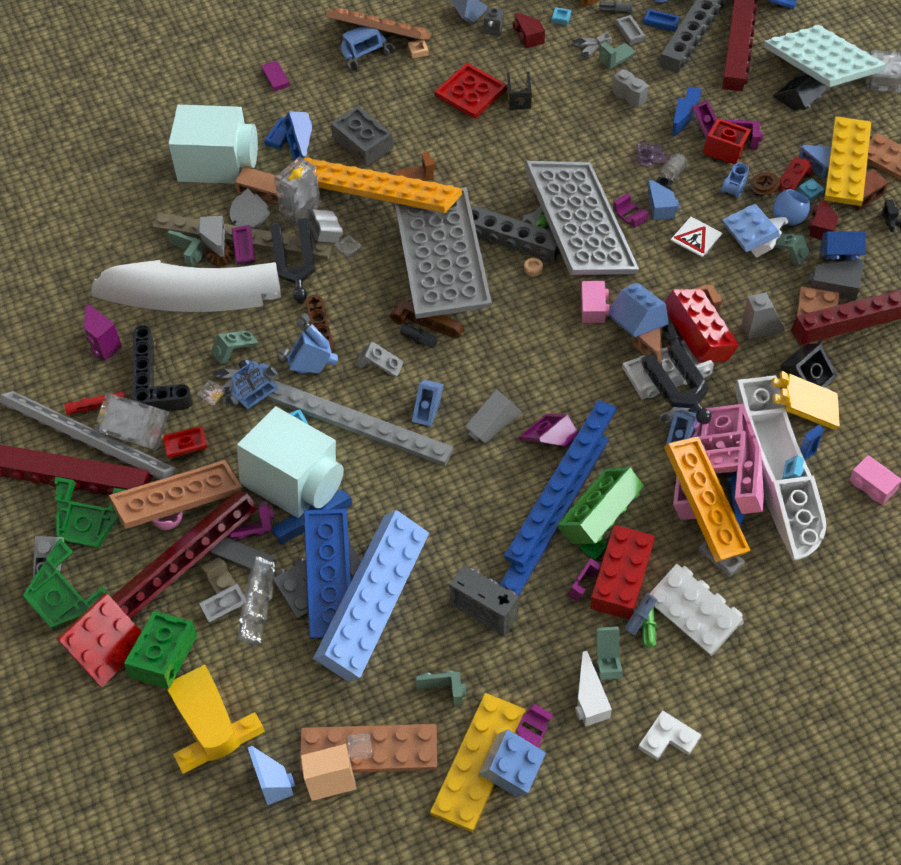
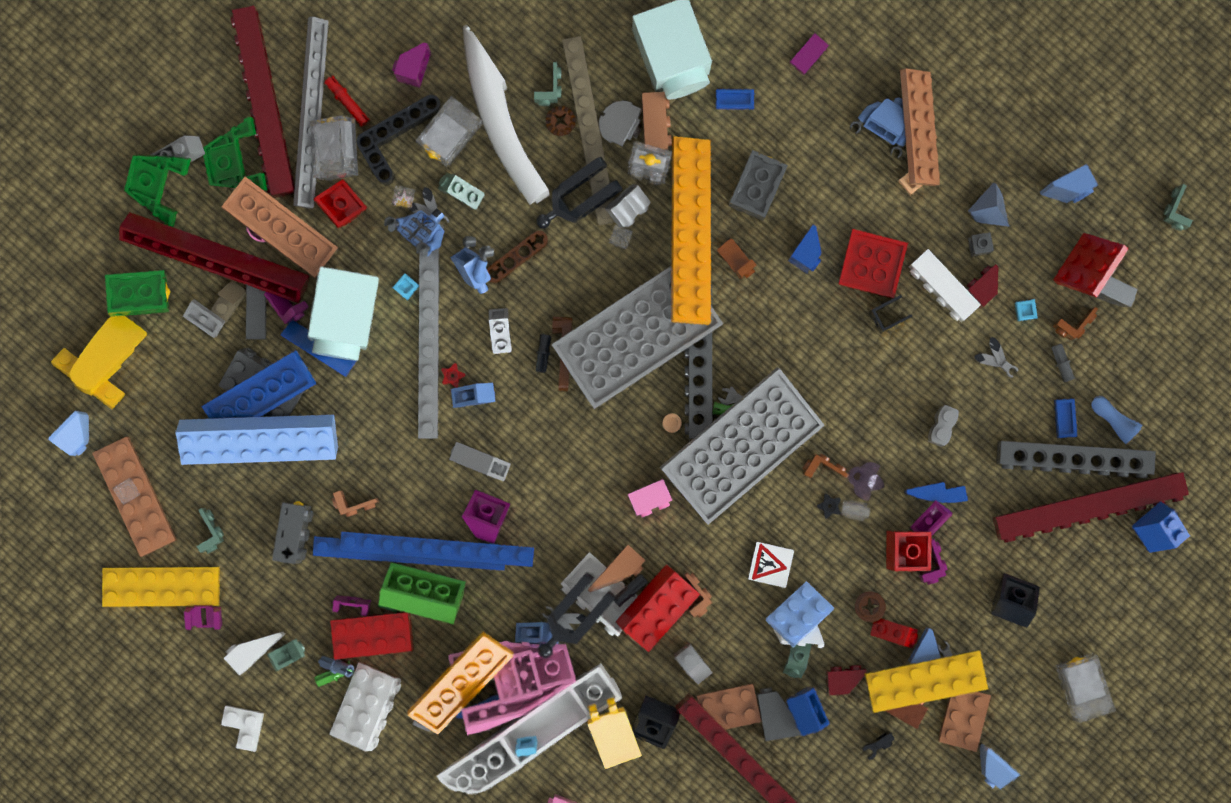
camera: 65 degrees right, 30 degrees up
(101, 639) = (123, 242): plate -> none
(176, 330) = (449, 132): none -> clear piece
(212, 233) = (568, 107): light grey slope -> none
(243, 244) = (575, 139): magenta tile -> none
(255, 602) = (217, 344): clear slope -> none
(298, 132) = (734, 121): slope -> none
(328, 772) = (97, 475): light nougat slope -> none
(399, 411) = (447, 375): none -> red plate
(436, 120) = (808, 252): none -> blue slope
(479, 550) = (339, 502): none -> nougat bracket
(512, 763) = (161, 616): medium blue brick -> none
(514, 53) = (944, 286): none -> white brick
(612, 57) = (989, 392): sand green bracket -> none
(622, 173) = (811, 465): none -> dark orange bracket
(623, 206) = (787, 481): magenta piece -> none
(630, 30) = (1036, 391): light grey tile -> none
(638, 310) = (647, 545): medium blue slope -> none
(661, 201) = (802, 515): medium blue slope -> none
(736, 180) = (859, 577): medium blue piece -> none
(792, 206) = (842, 644): medium blue helmet -> none
(811, 189) = (885, 653): medium azure plate -> none
(811, 442) = (566, 751): blue tile -> none
(824, 55) = (1067, 611): light aqua plate -> none

